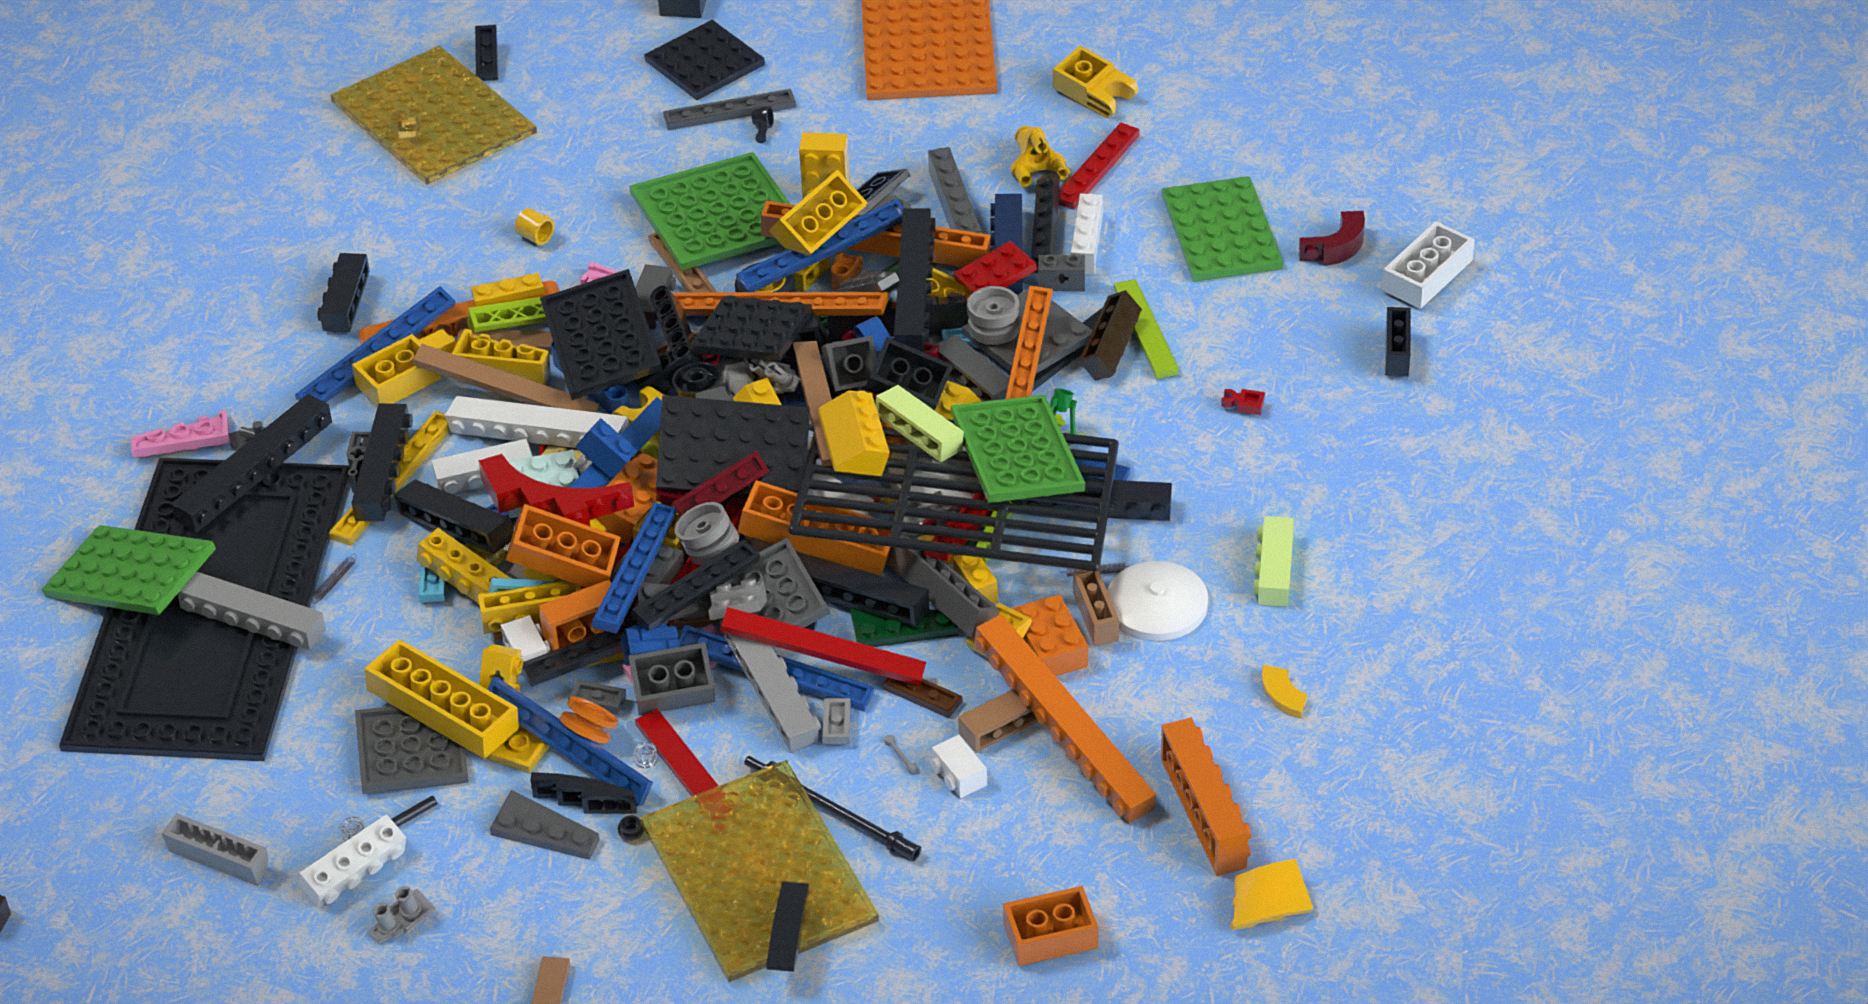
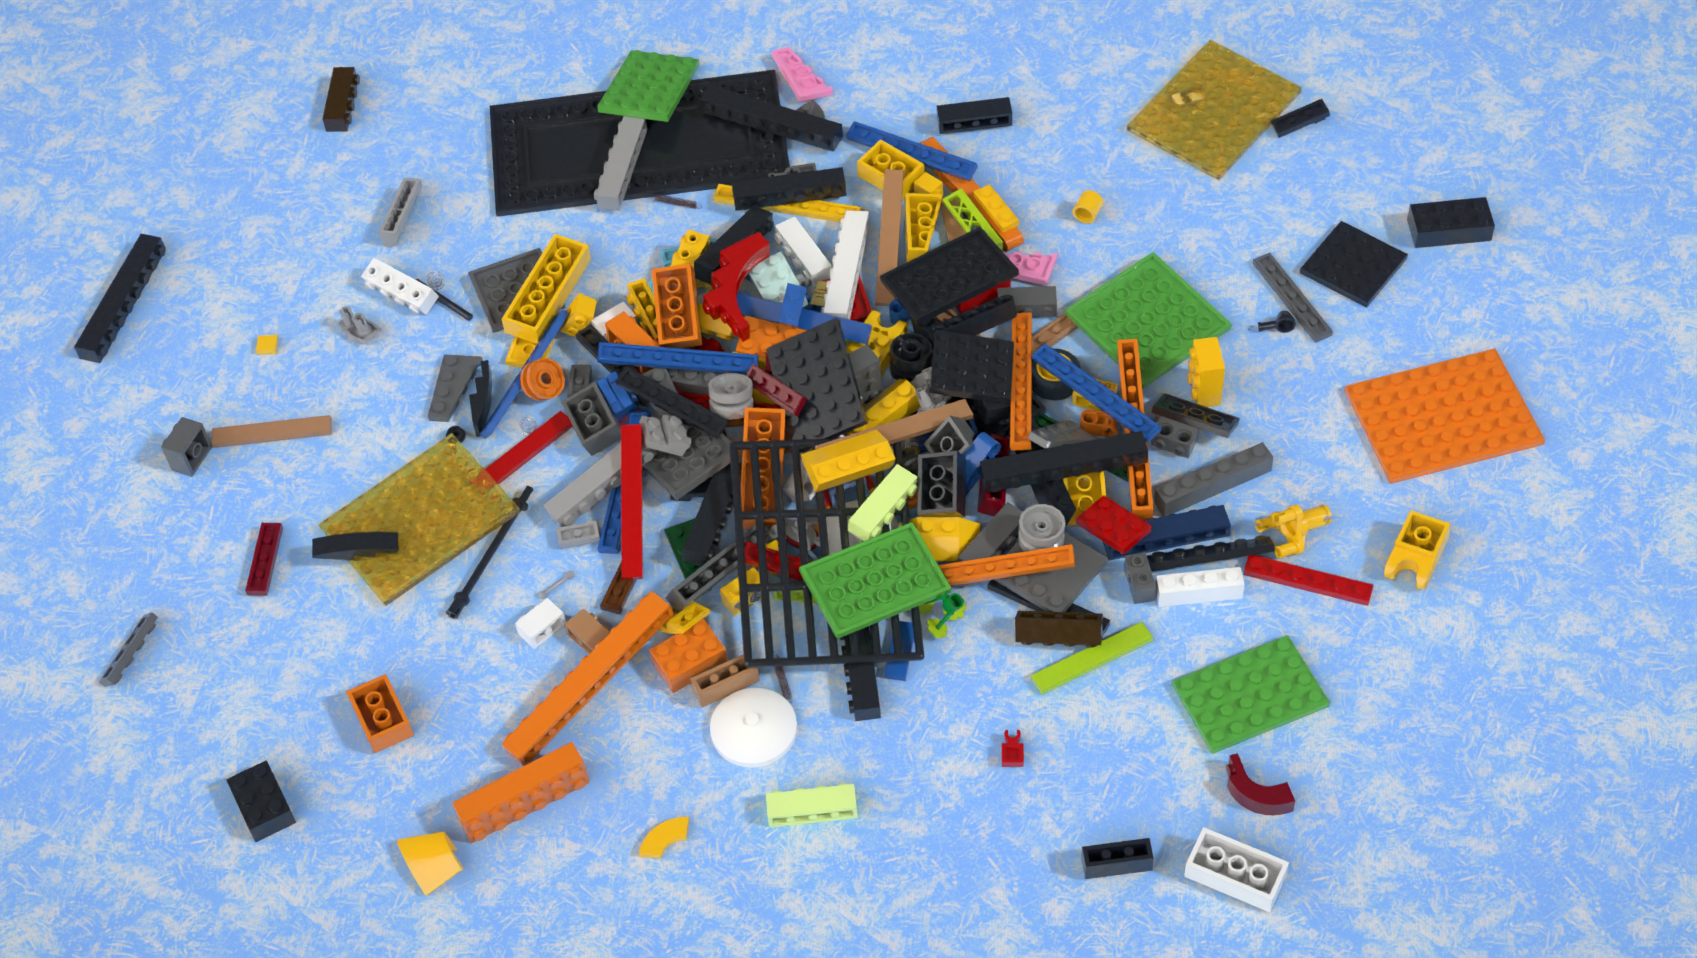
camera: 80 degrees right, 10 degrees up
(819, 215) = (1117, 376): yellow slope -> none

